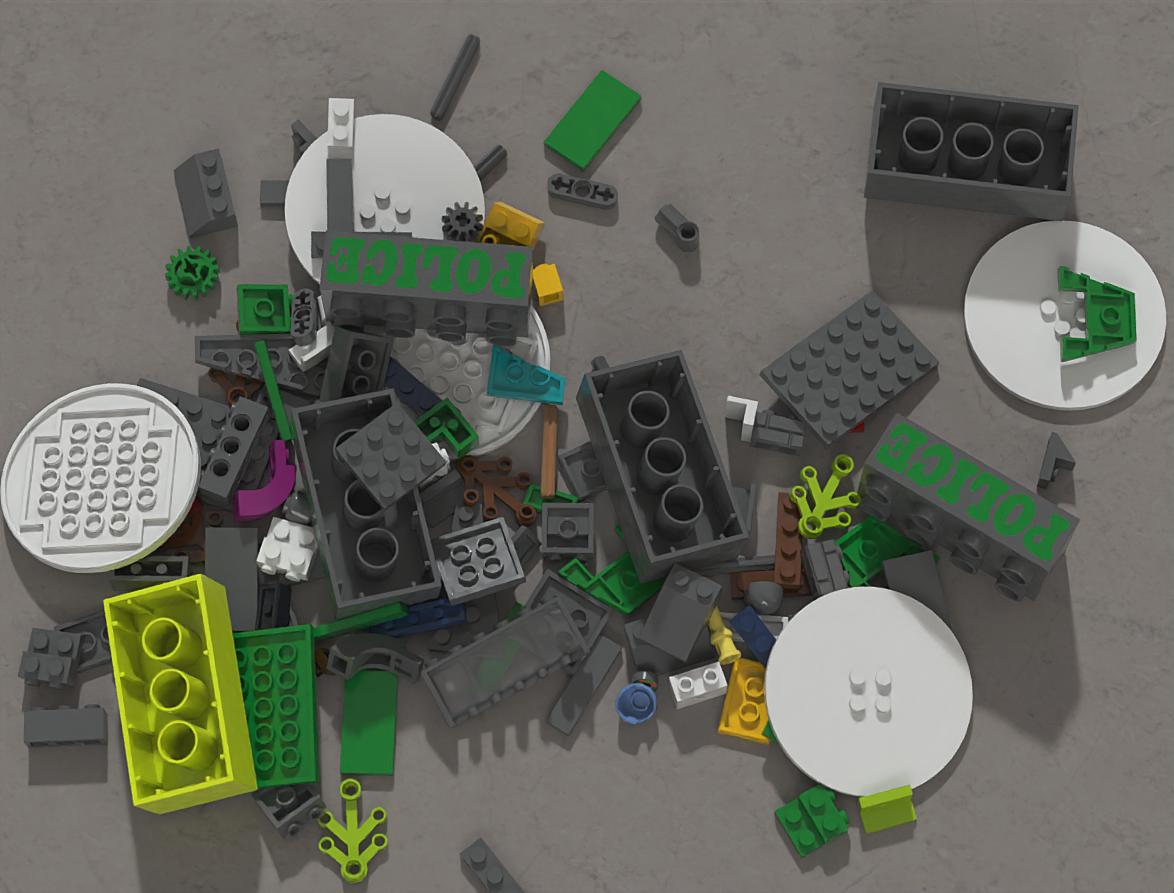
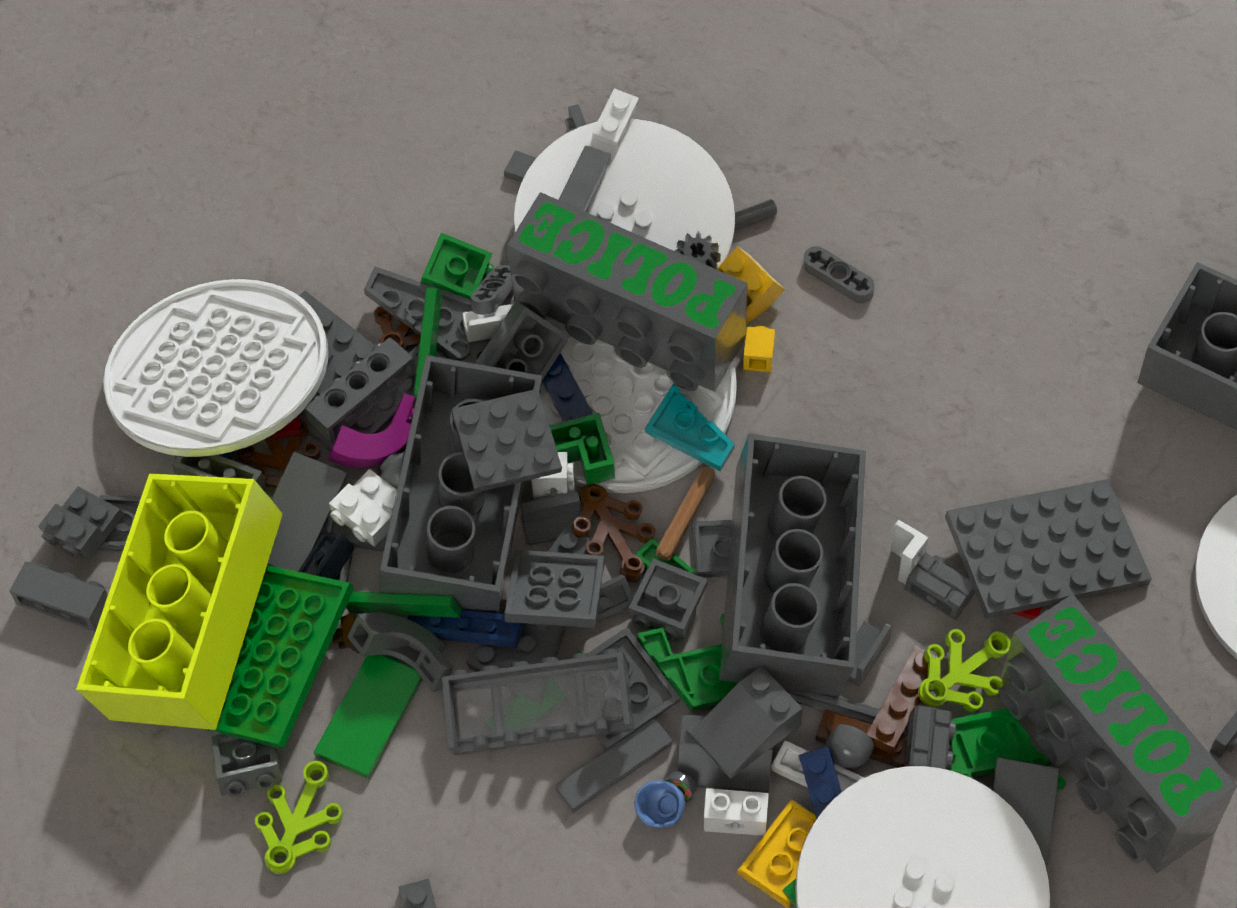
camera: 25 degrees right, 10 degrees down
(200, 264) = (418, 211): green gear -> none
(205, 194) = (455, 144): dark grey slope -> none
(454, 77) = (756, 123): dark grey axle -> none
(592, 120) = (880, 211): green tile -> none
(677, 226) = (924, 343): dark grey piece -> none
(722, 639) = (783, 771): light yellow pin -> none

